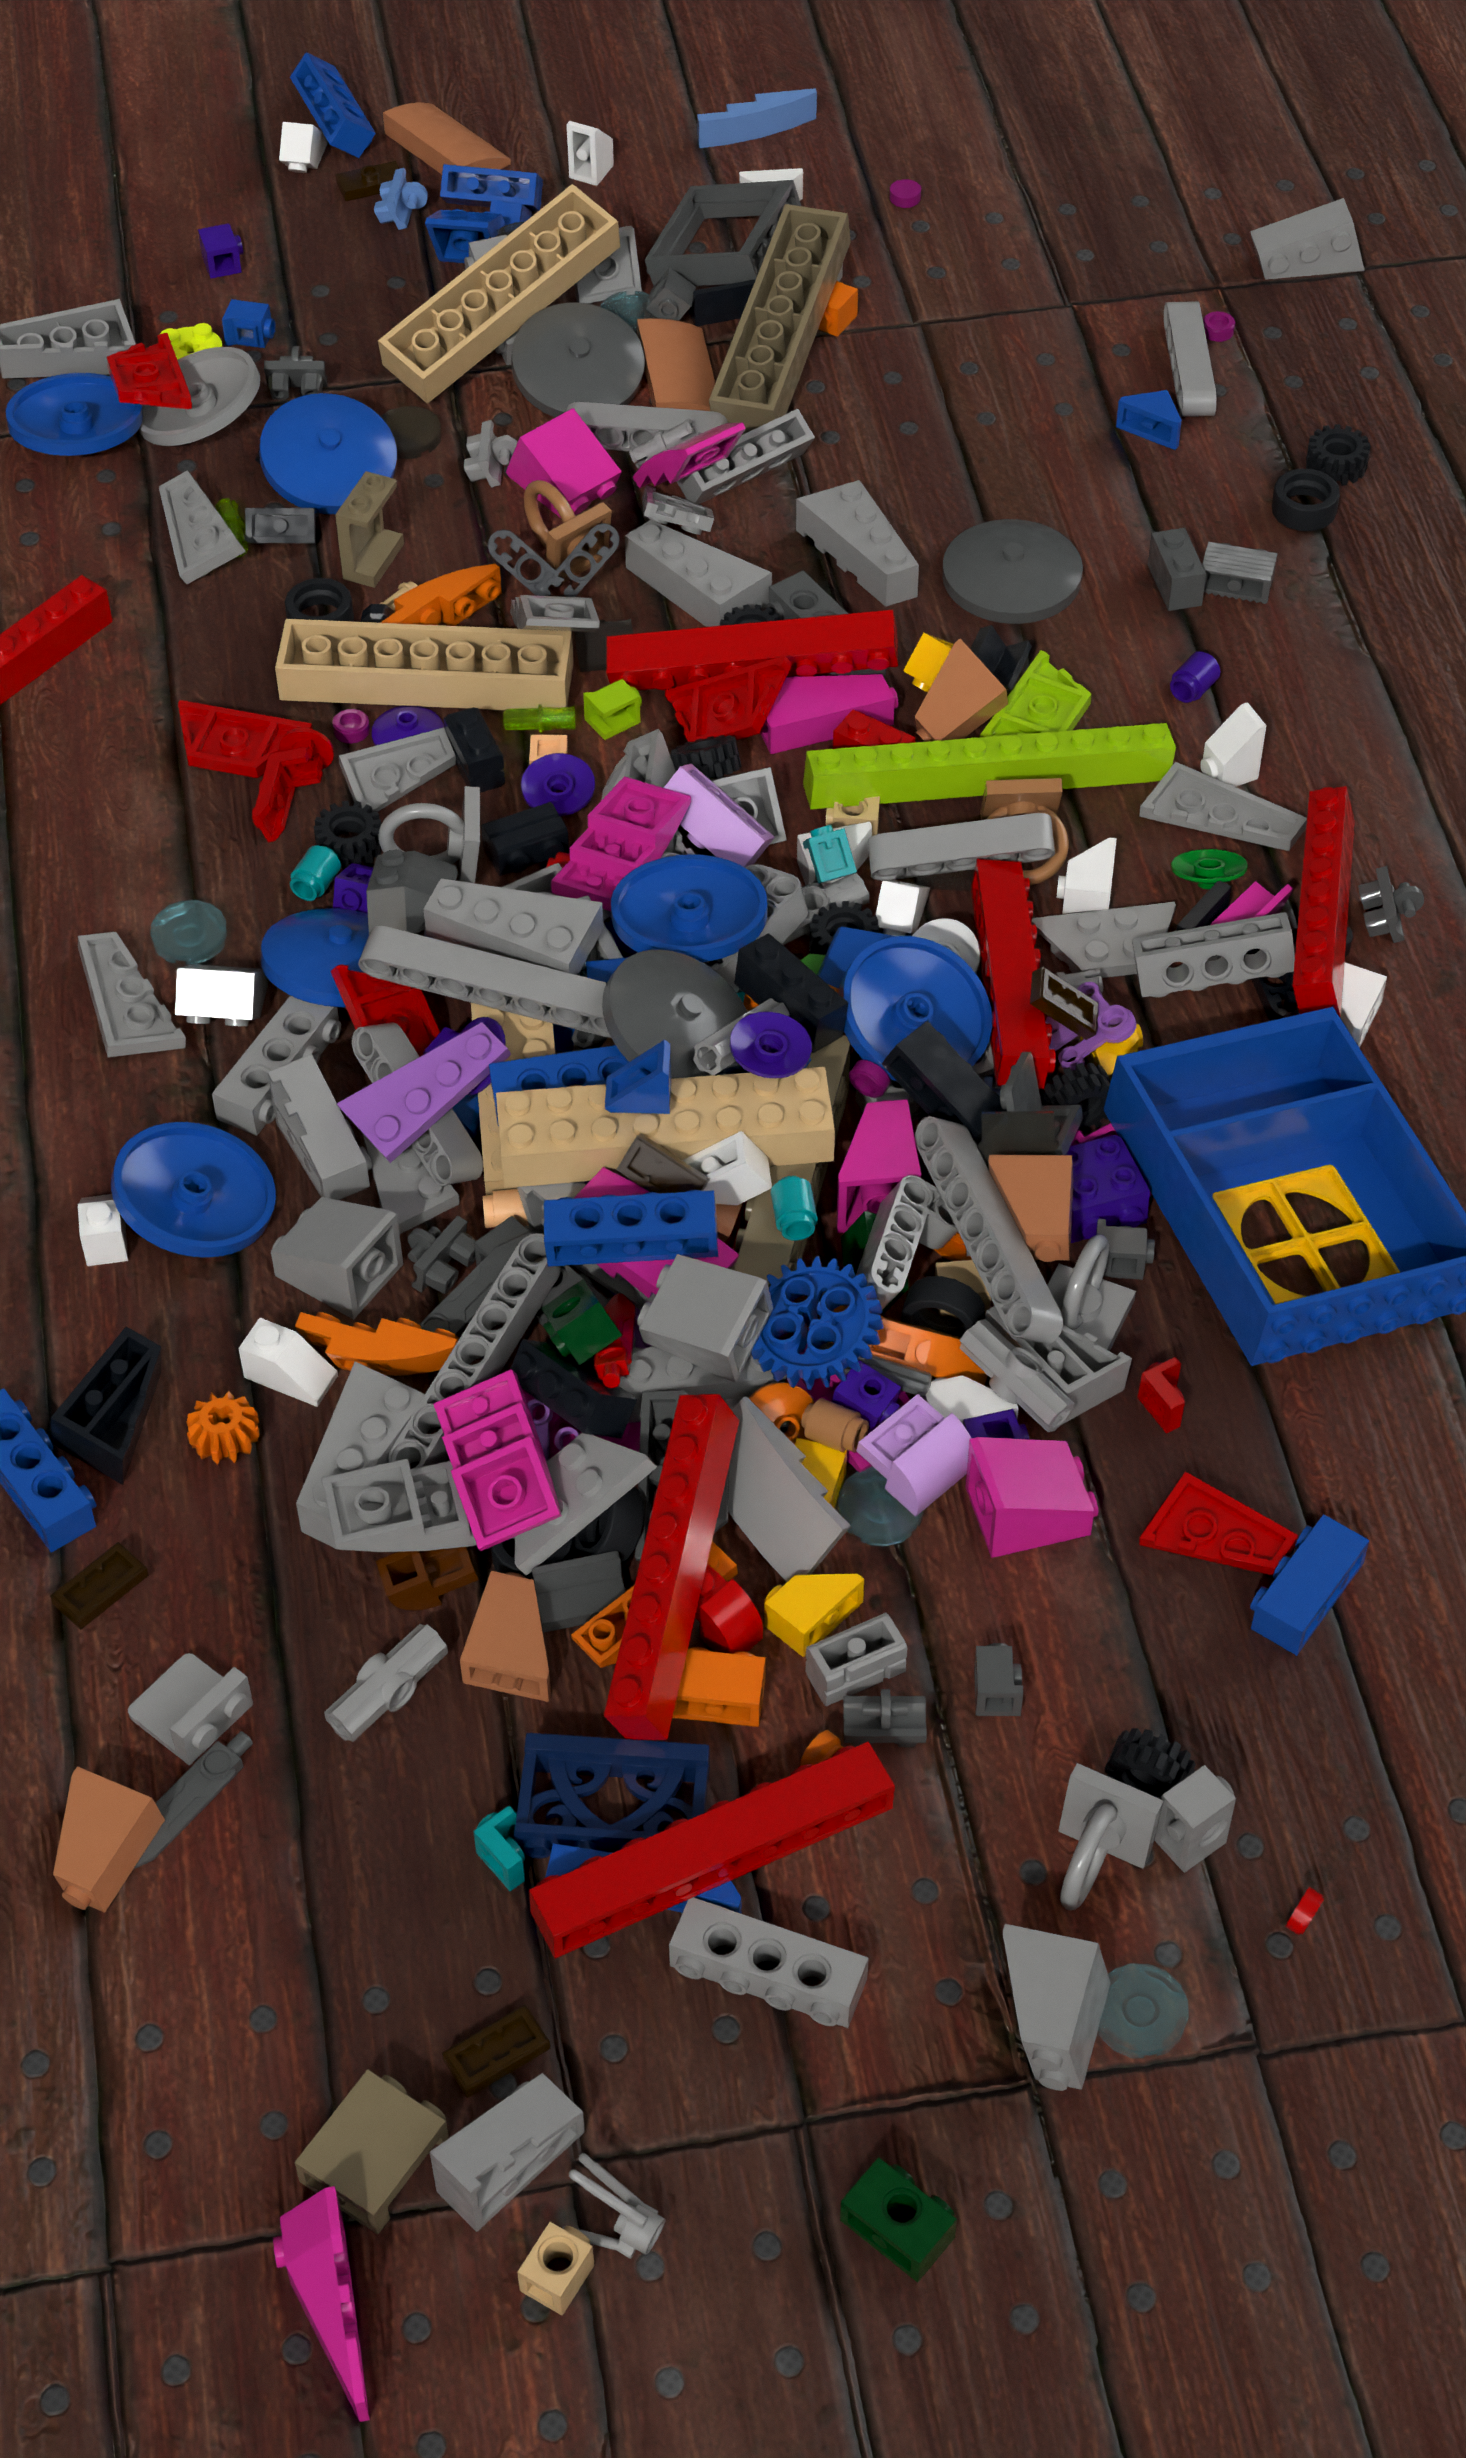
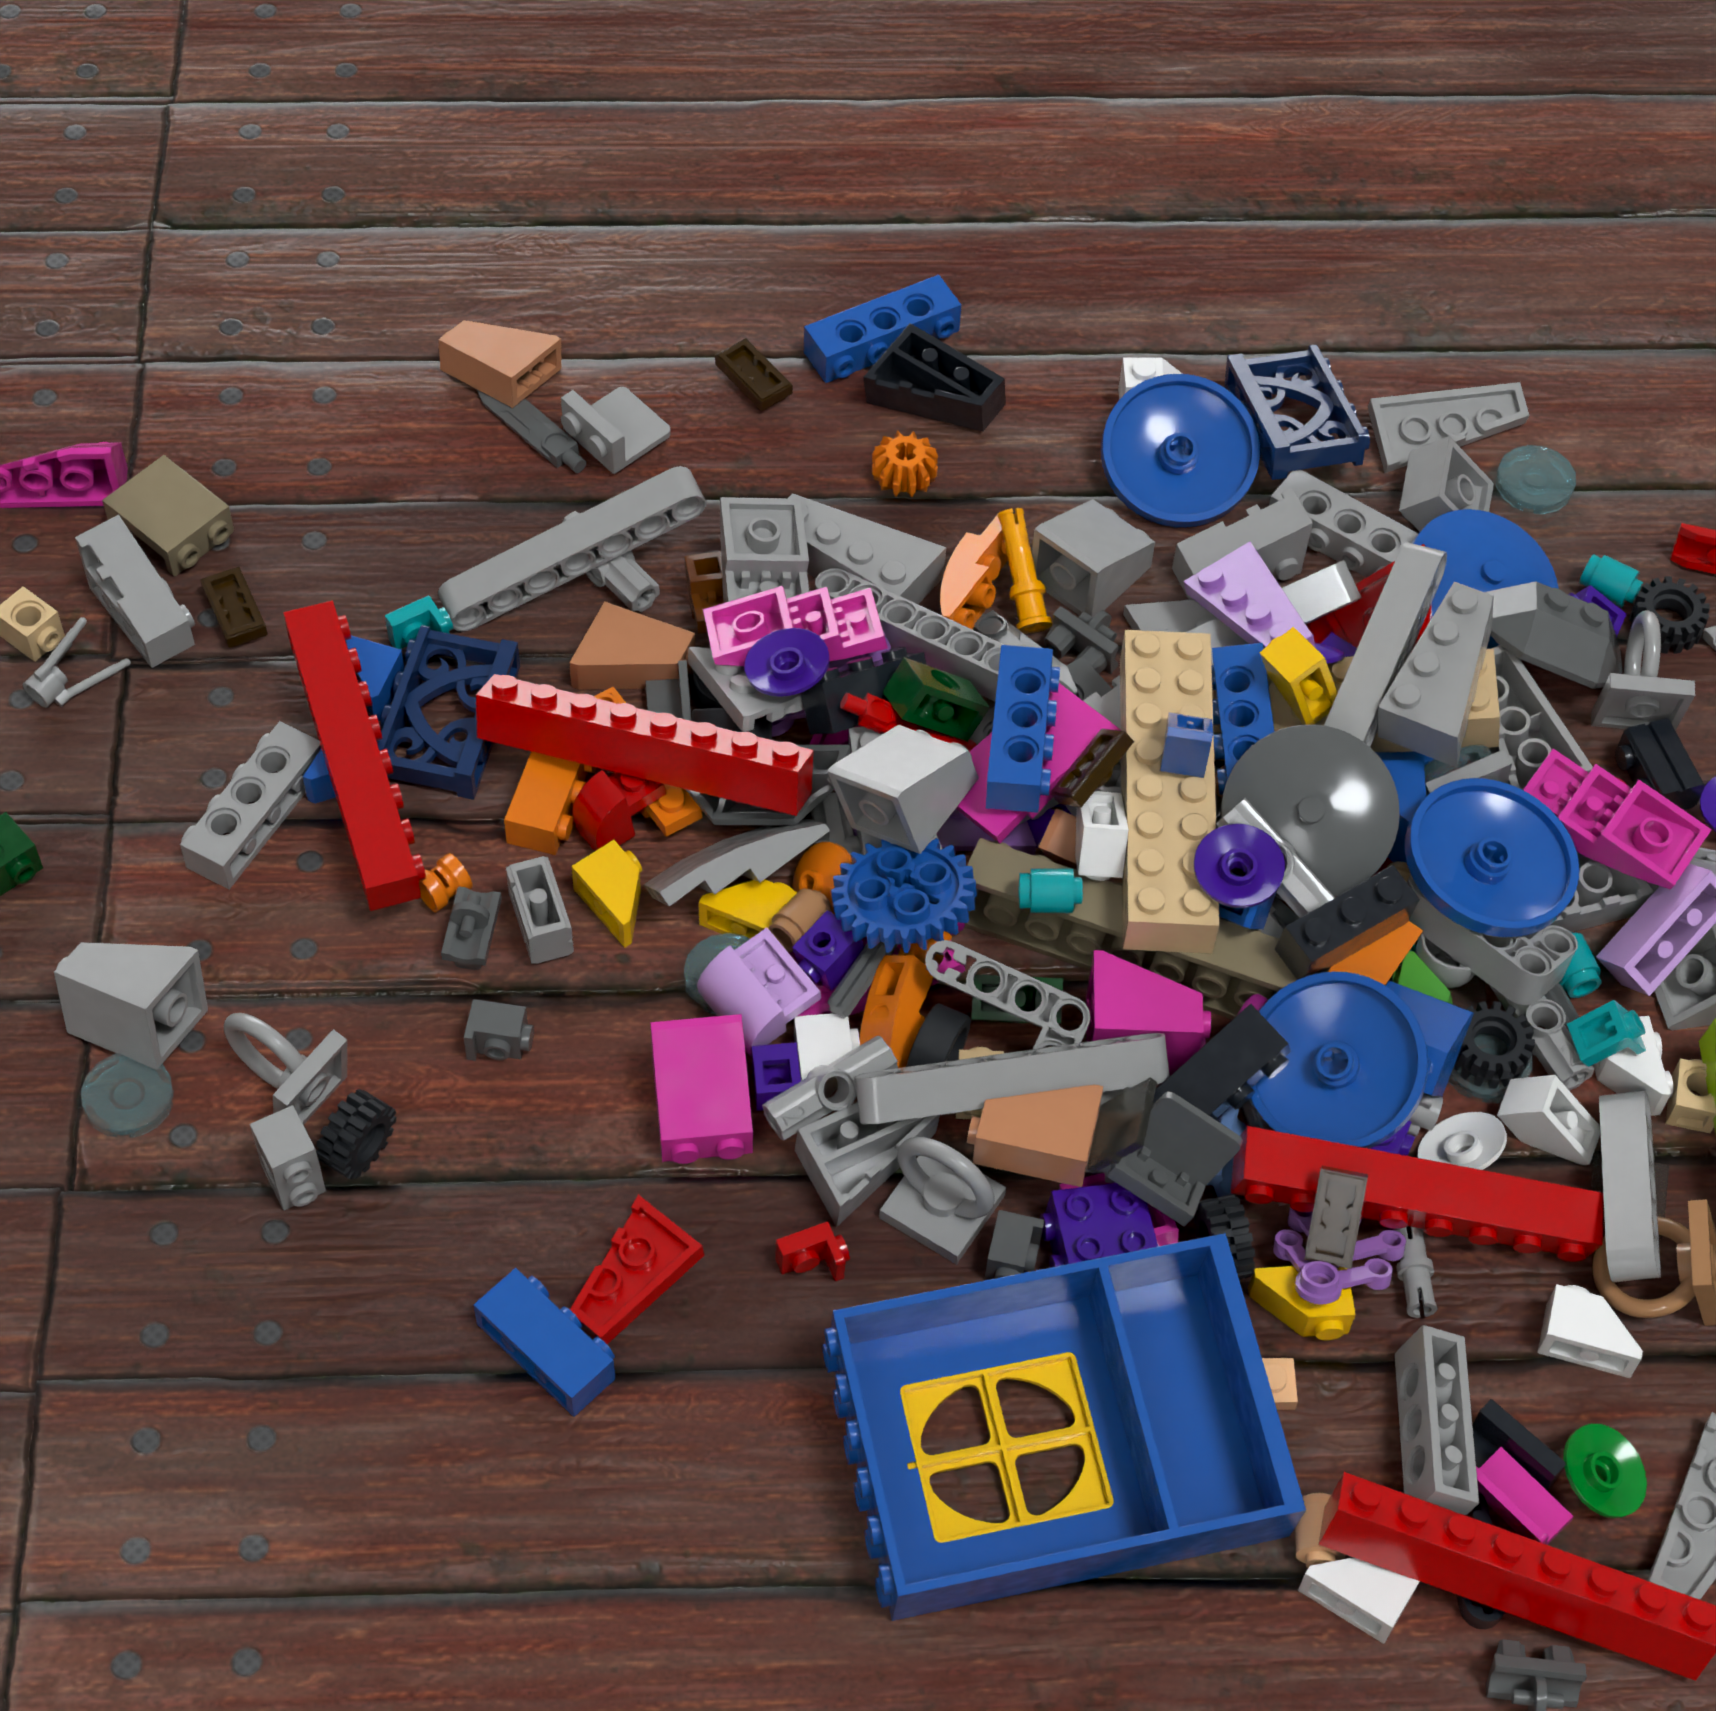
camera: 95 degrees right, 5 degrees up
(99, 1085) = (1298, 446): none -> dark blue fence
(285, 1363) = (971, 507): white slope -> none
(387, 1300) = (1026, 589): none -> light orange pin
(399, 1696) = (572, 548): none -> light grey beam
(531, 1026) = (1300, 676): none -> yellow slope
(569, 1414) = (787, 662): none -> dark purple dish
(1103, 936) = (1501, 1340): light grey wing -> none
(1305, 1911) = (179, 1250): red tile -> none

